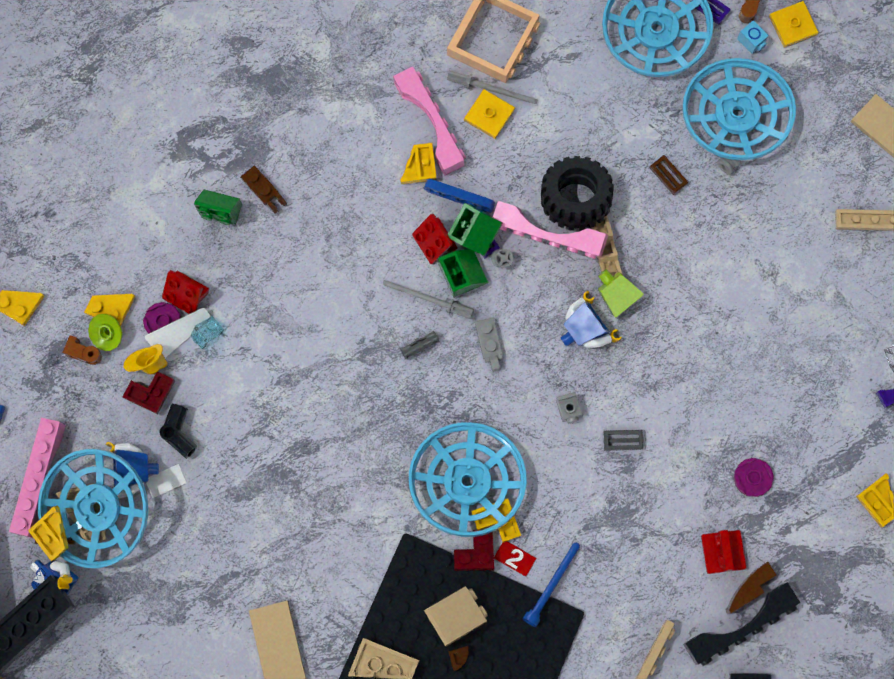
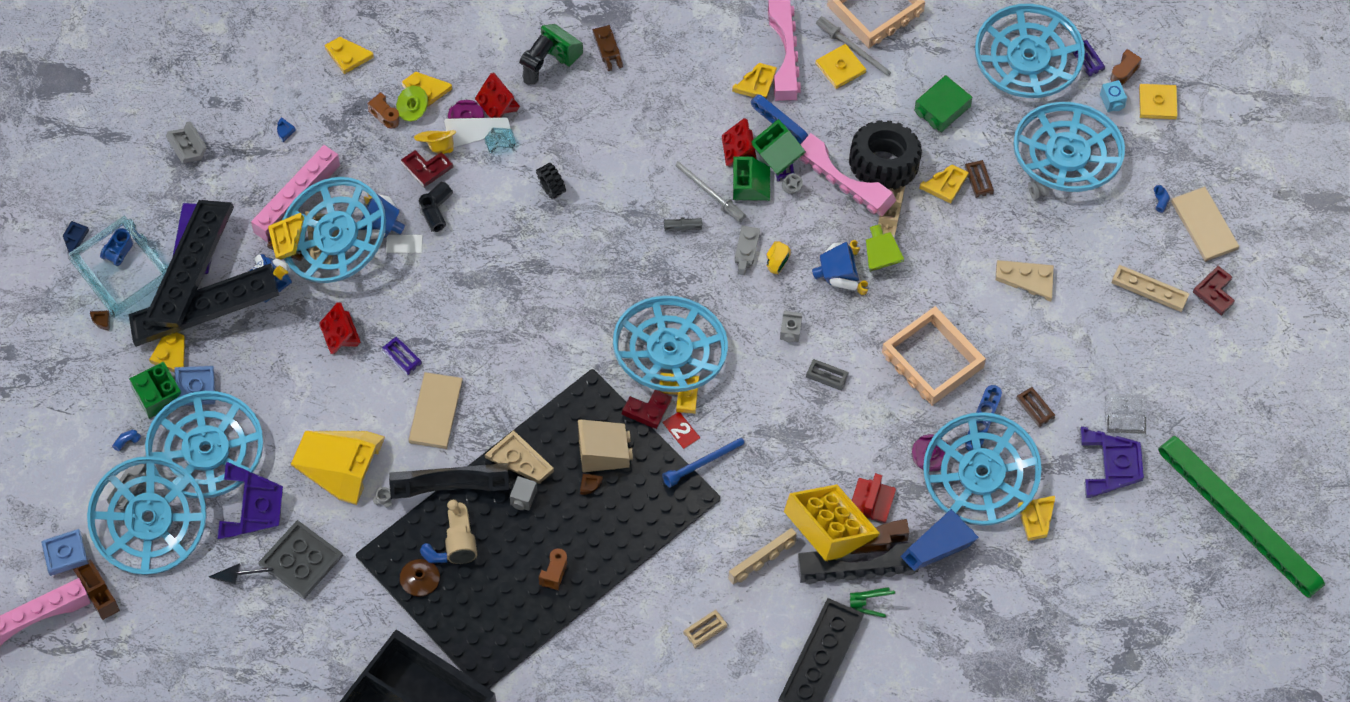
camera: 20 degrees right, 15 degrees down
(147, 603) = (339, 329): none -> red bracket
(201, 238) = (534, 58): none -> black piece
(233, 607) = (411, 366): none -> dark purple tile
(276, 357) = (551, 180): none -> black tyre
(523, 341) = (777, 257): none -> yellow rock
(602, 113) = (943, 103): none -> green brick
(642, 194) = (945, 183): none -> yellow wing
(700, 596) = (829, 521): none -> yellow slope
(724, 351) = (954, 336): none -> light nougat window
(759, 256) = (1028, 276): none -> tan wing
(759, 661) = (858, 600): none -> green plant
(785, 421) = (986, 403): none -> blue beam
(808, 572) = (940, 541): none -> blue slope
(820, 392) = (1044, 419): none -> reddish brown tile
(823, 481) = (984, 458): none -> medium azure dish
(842, 121) = (1162, 196): none -> blue arm

